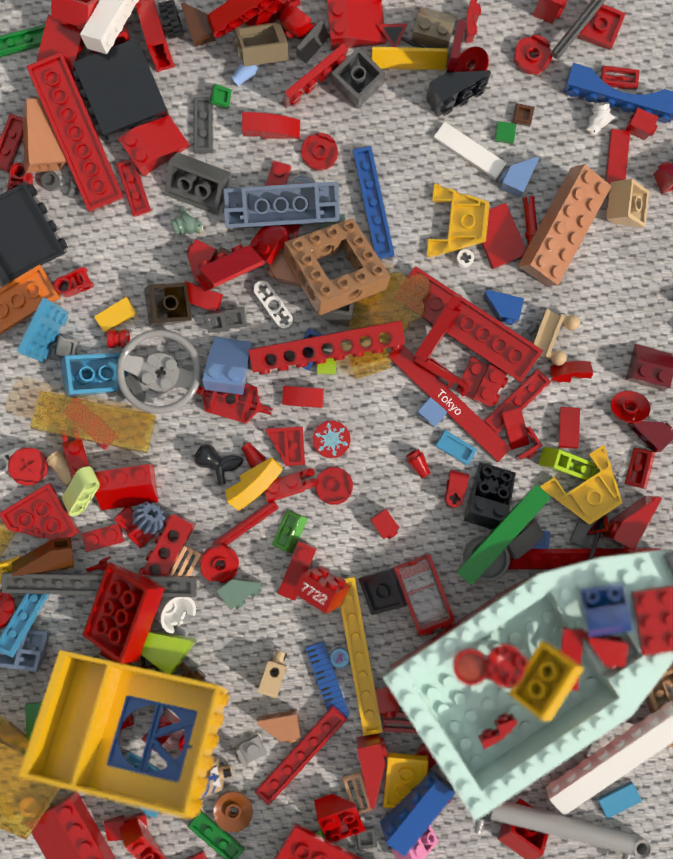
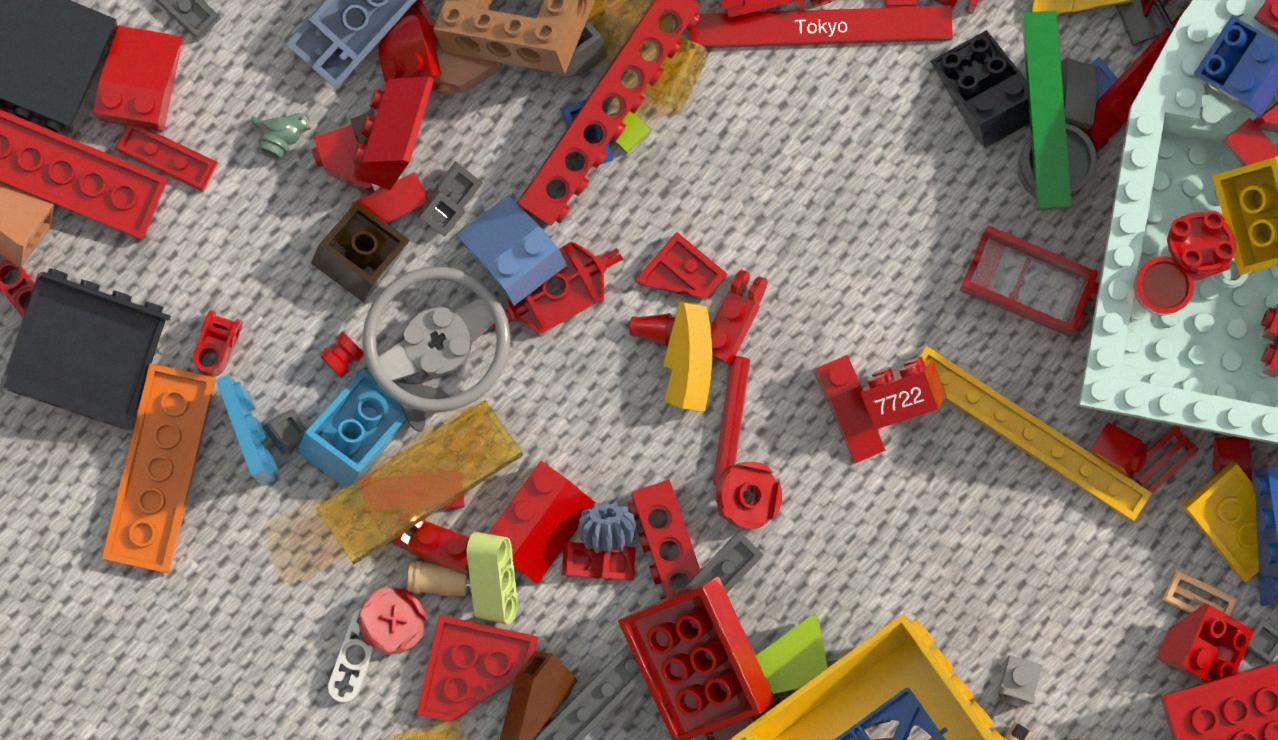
camera: 45 degrees left, 5 degrees down
(50, 181) = (53, 251): dark grey tile -> none
(72, 186) = (87, 228): dark grey bar -> none
(101, 565) = (607, 648): red hand -> none
(103, 537) = (573, 614): red plate -> none
(115, 315) = (306, 331): yellow tile -> none
(173, 610) = (753, 605): white helmet -> none
(191, 551) = (700, 520): light nougat tile -> none
(196, 182) = (241, 72): dark grey slope -> none
(209, 458) = (602, 384): black piece -> none
(238, 590) = (804, 505): sand green slope -> none
(261, 296) = (462, 129): white beam -> none
(271, 684) = (958, 572): tan torso -> none
(282, 725) = (1027, 609): nougat slope -> none
(289, 531) = (791, 374): bright green slope -> none
(300, 755) = (1085, 623): red tile -> none
(303, 396) = (639, 196): red slope -> none
(326, 677) = (1024, 504): blue tile -> none
(331, 439) = (727, 213): red tile -> none
(335, 478) = (794, 272): red tile -> none
(339, 657) = (1009, 461): medium blue tile -> none
(371, 755) = (1176, 537): red slope -> none
(382, 591) = (977, 327): black plate -> none
(385, 524) = (896, 246): red brick -> none
(418, 462) = (859, 134): red cone -> none
(432, 412) = (813, 58): medium blue panel -> none
(456, 447) = (885, 72): dark azure tile -> none
(456, 485) = (933, 115): red piece -> none

